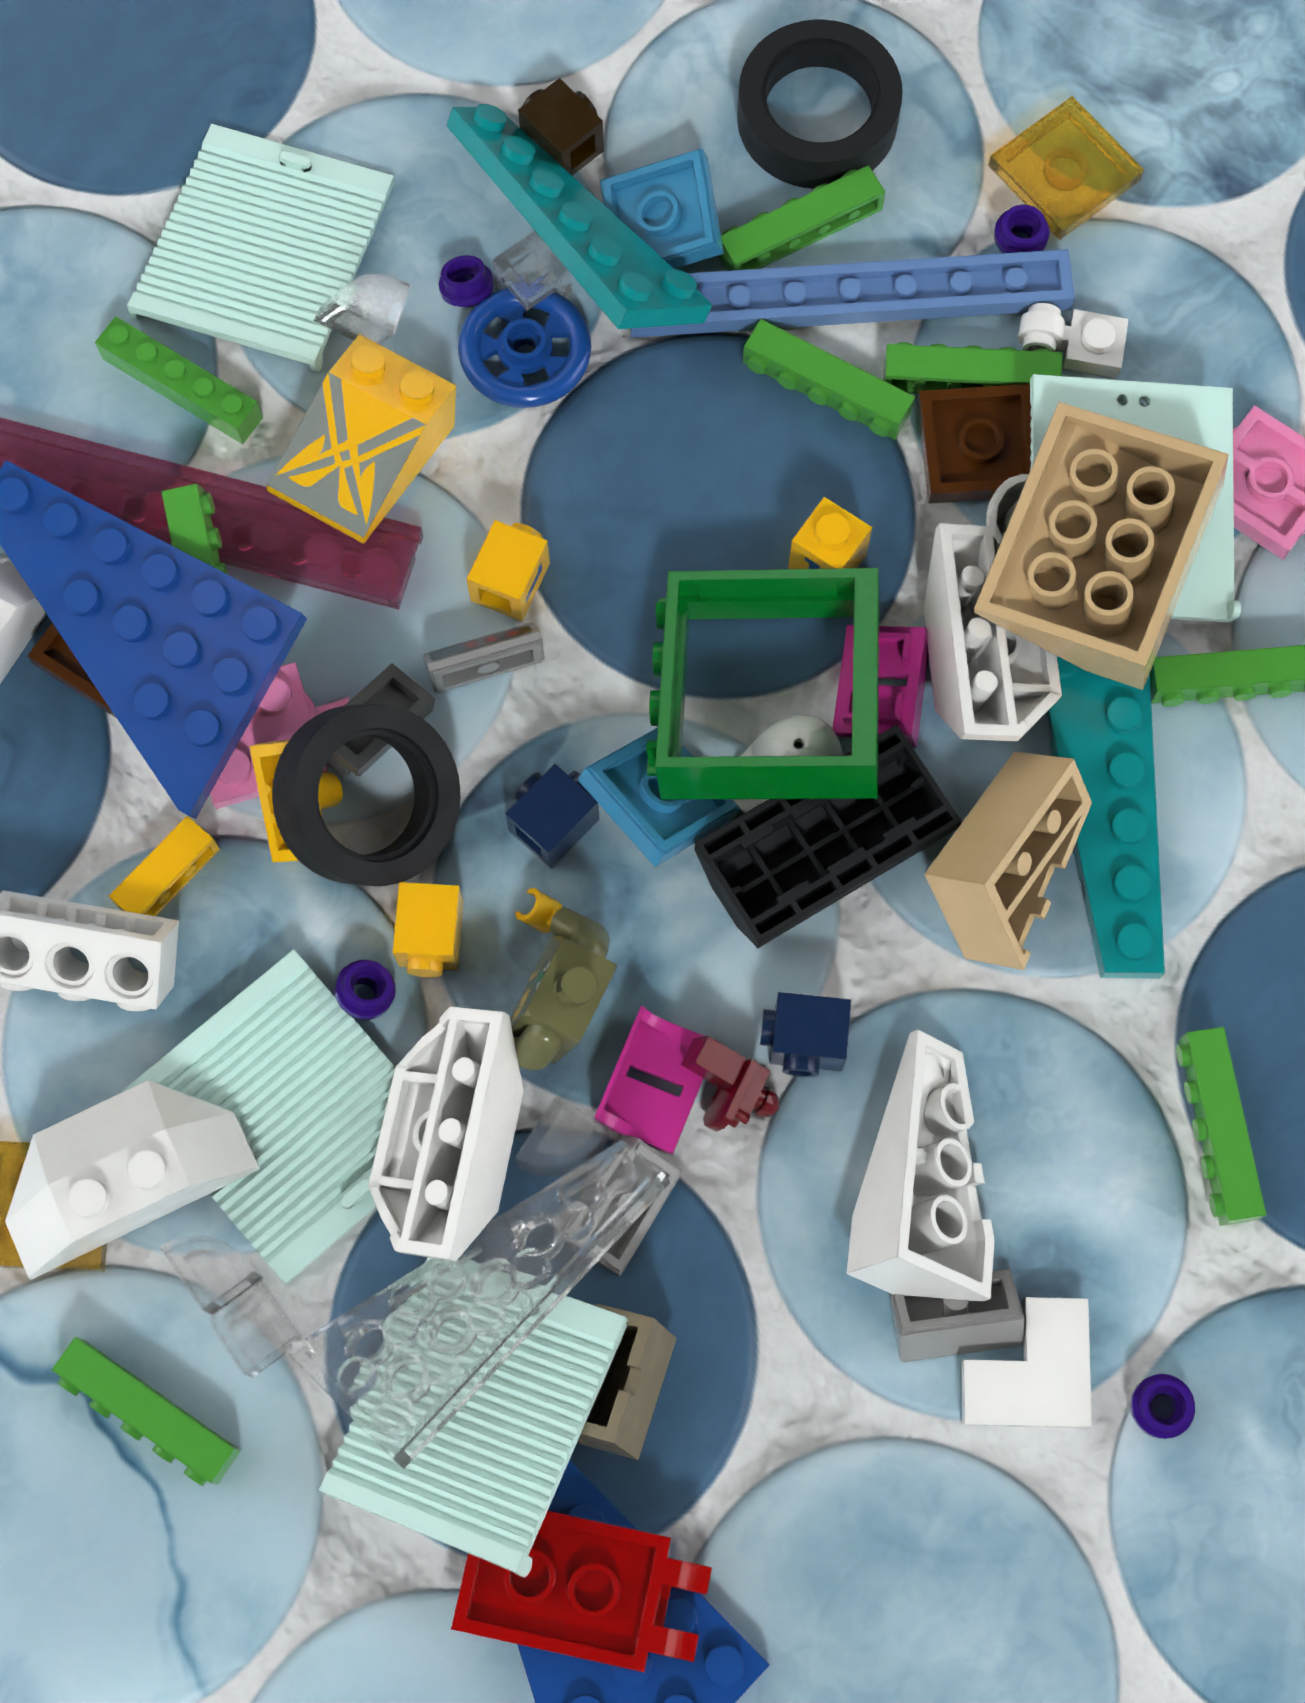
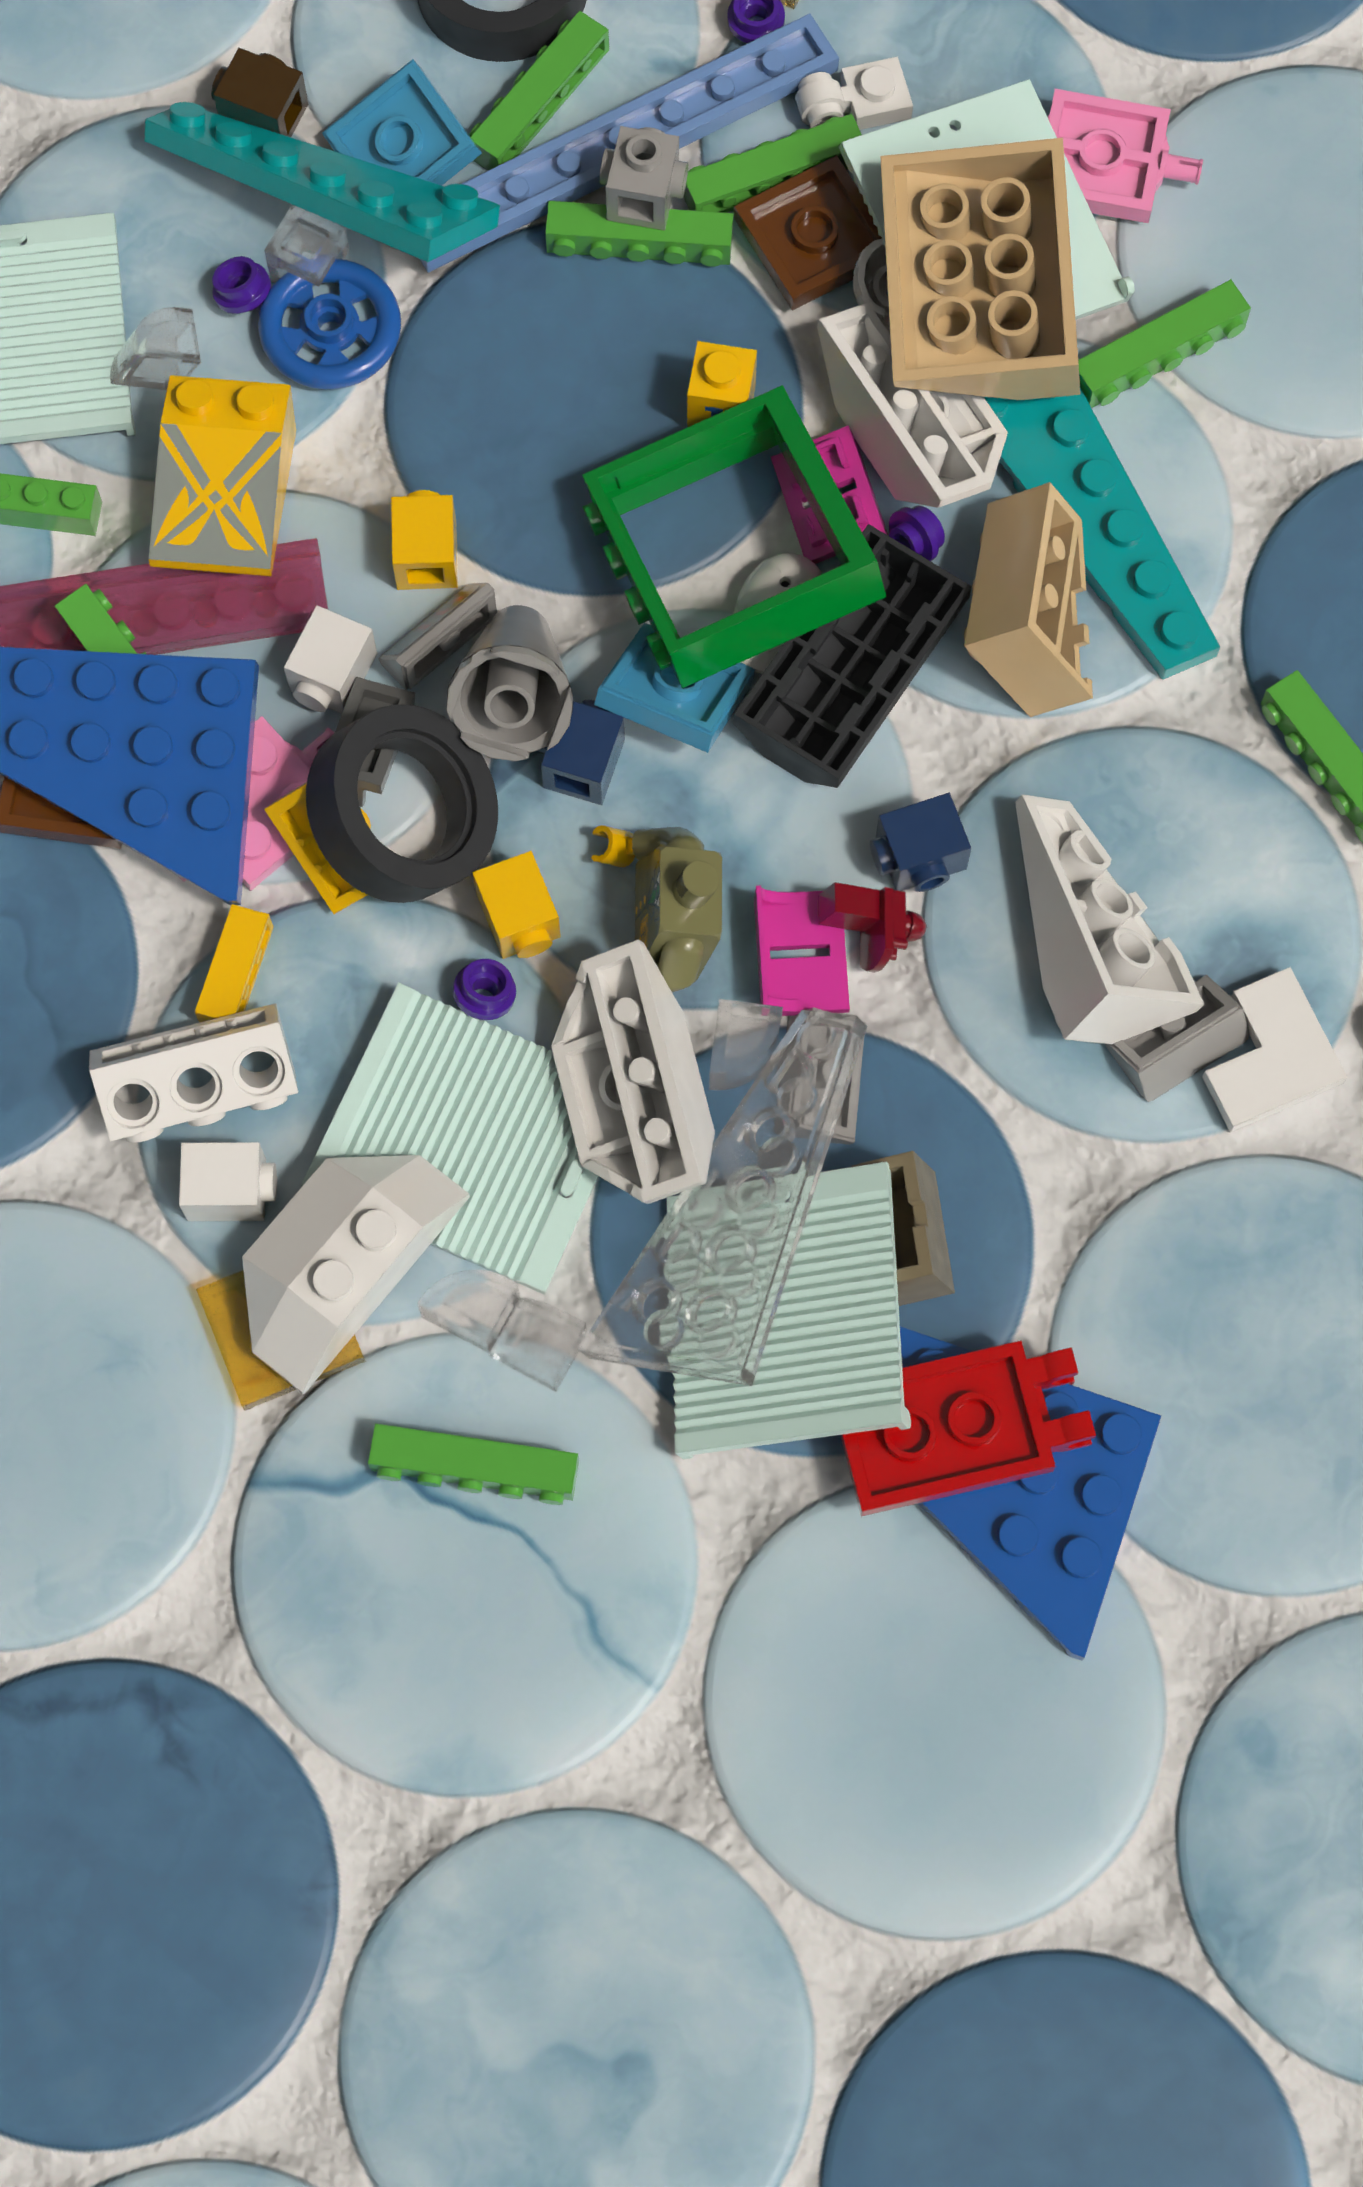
camera: 25 degrees left, 0 degrees up
(59, 1058) = (225, 1181): none -> white brick
(375, 637) = (328, 660): none -> white brick
(510, 731) = (511, 688): none -> light grey cone
(848, 332) = (643, 177): none -> light grey brick
(939, 750) = (918, 530): none -> dark purple plate

